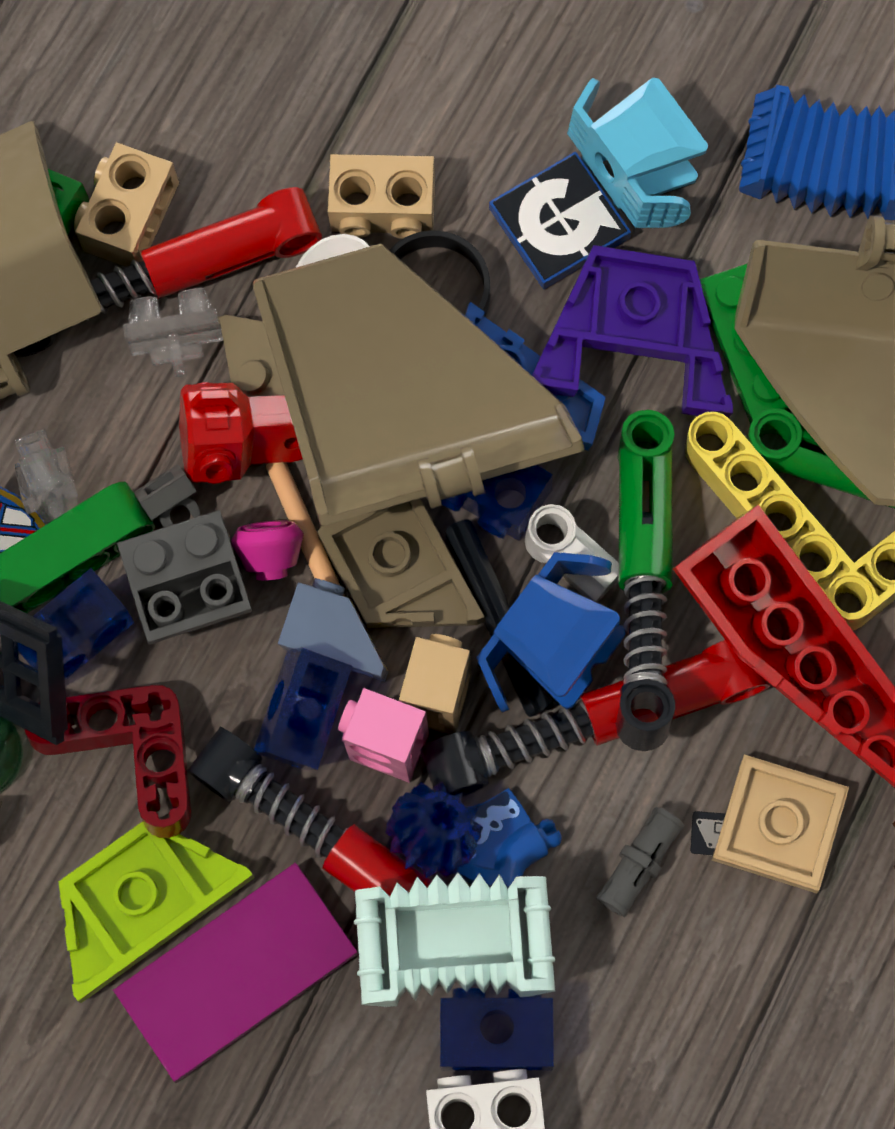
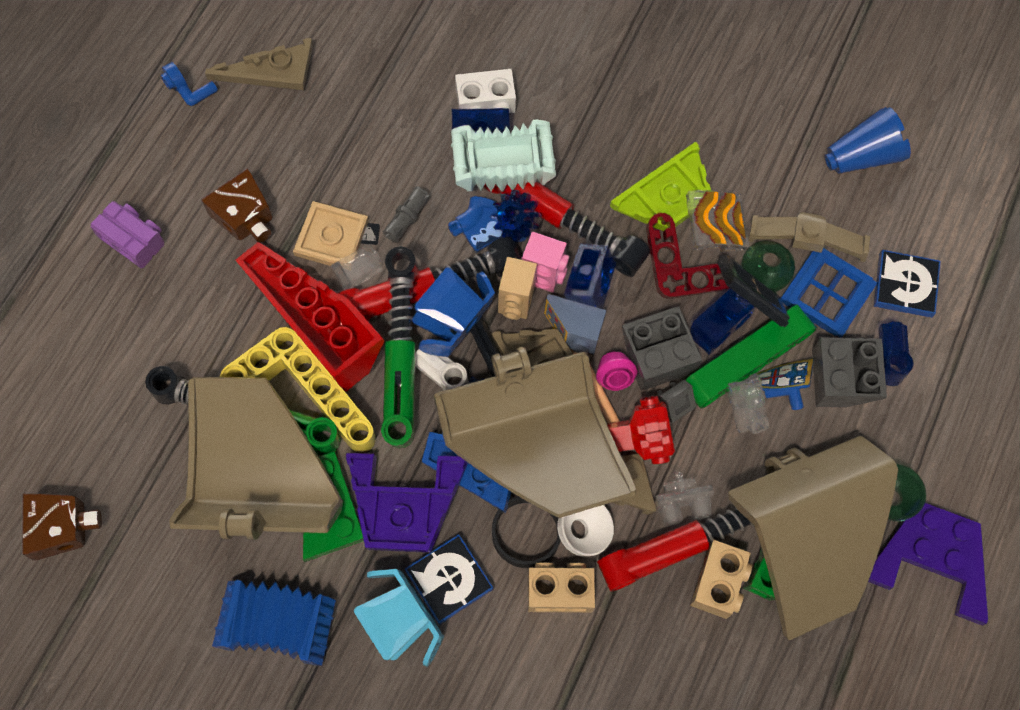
camera: 170 degrees right, 5 degrees down
(55, 833) = (717, 220): none -> slope
(235, 972) = (615, 162): magenta tile -> none
(726, 740) = (357, 267): none -> clear brick

